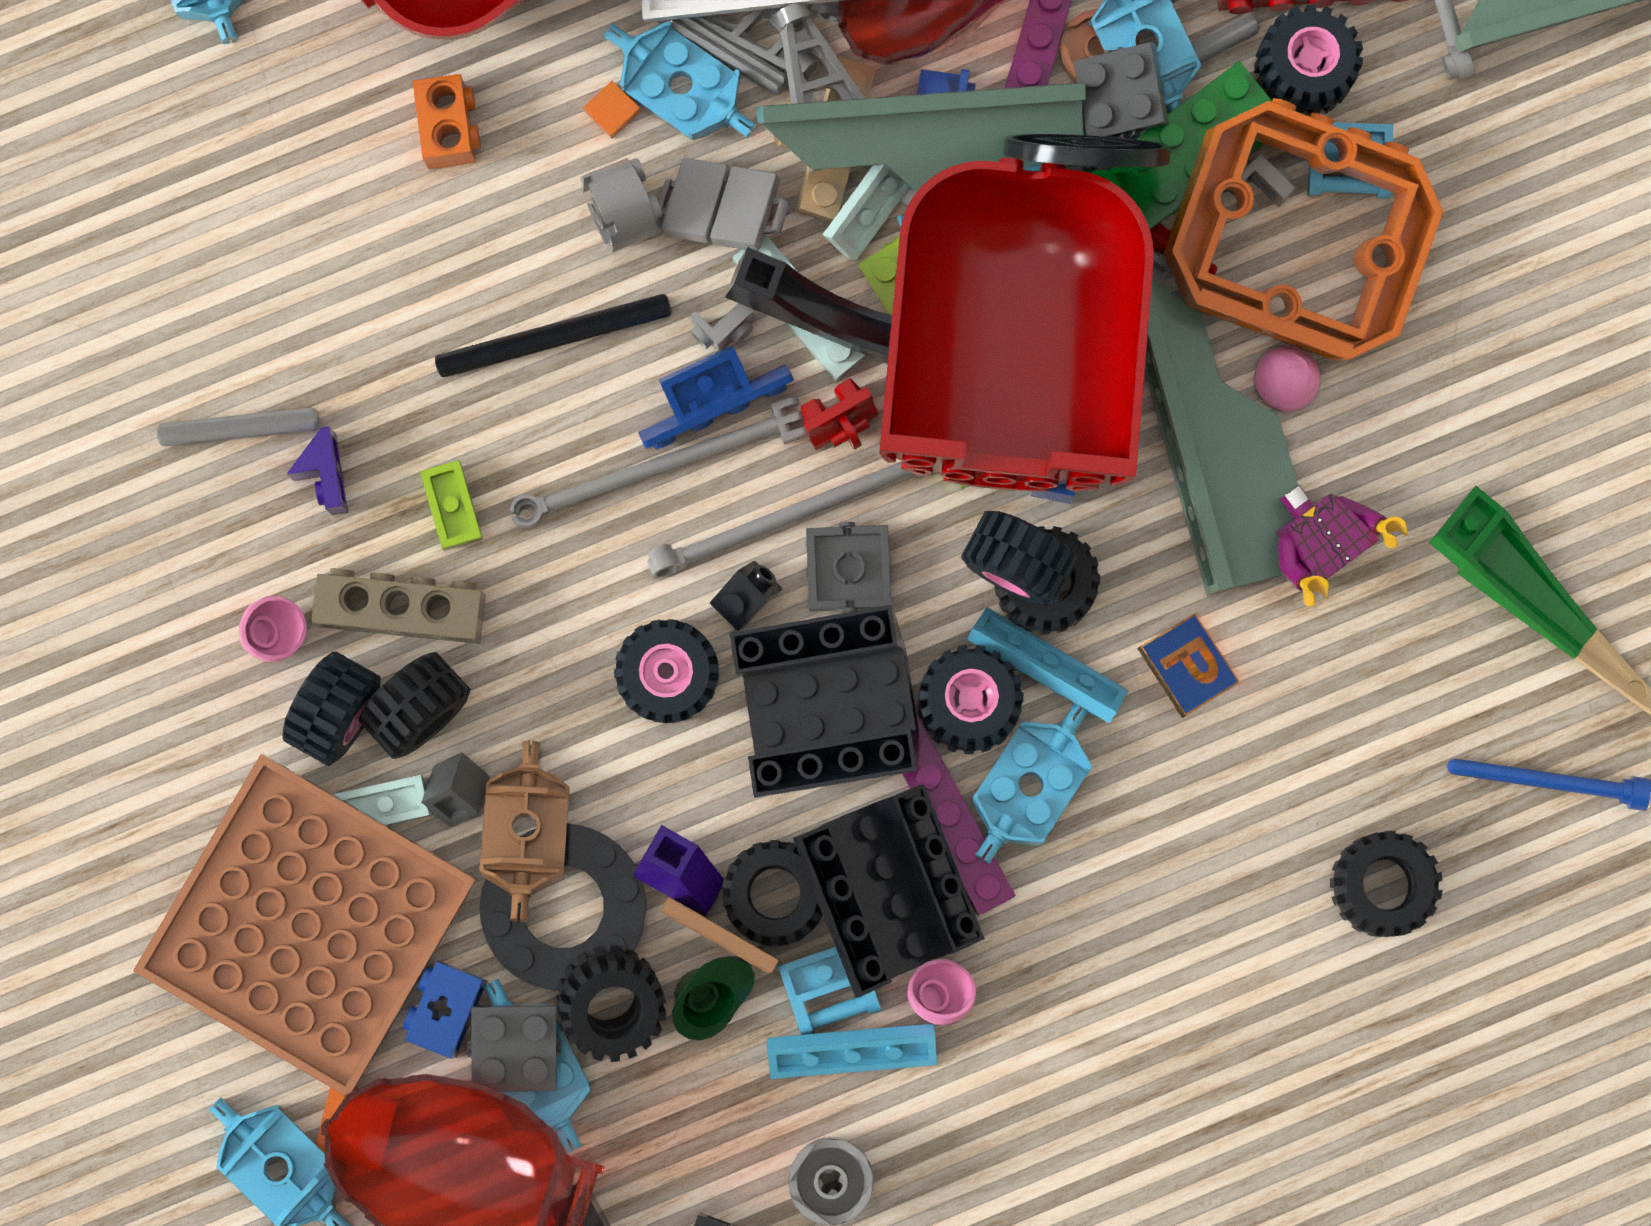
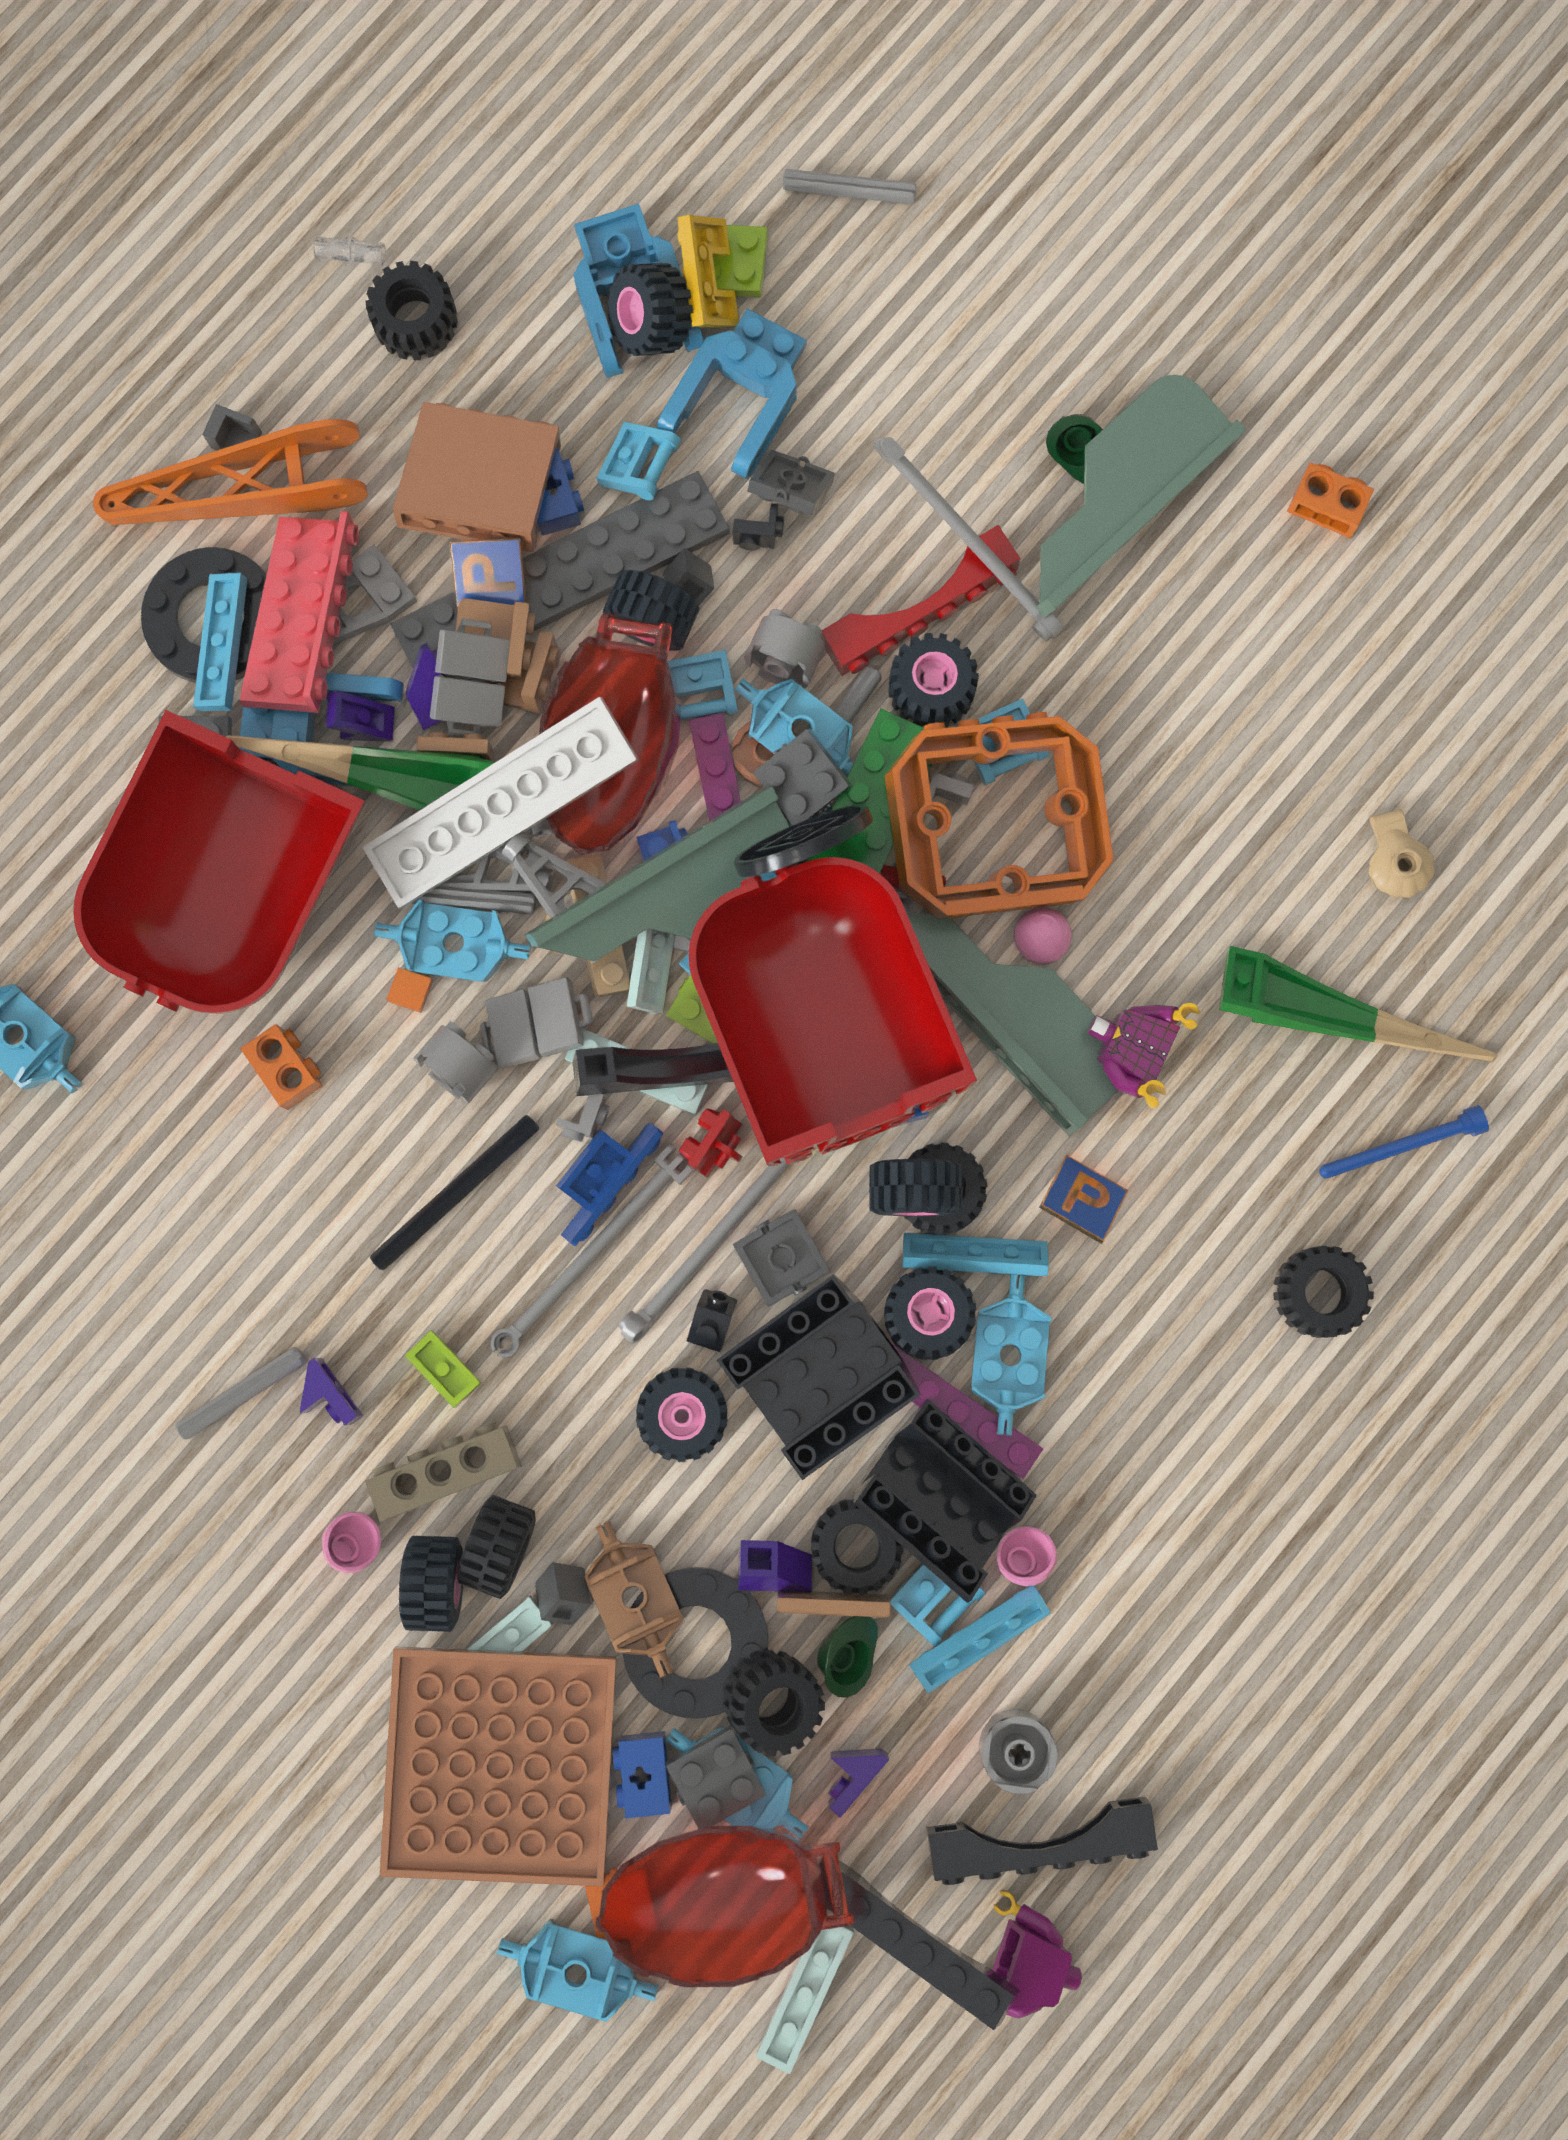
camera: 30 degrees left, 0 degrees up
(664, 1115) = (862, 1768): none -> dark purple slope

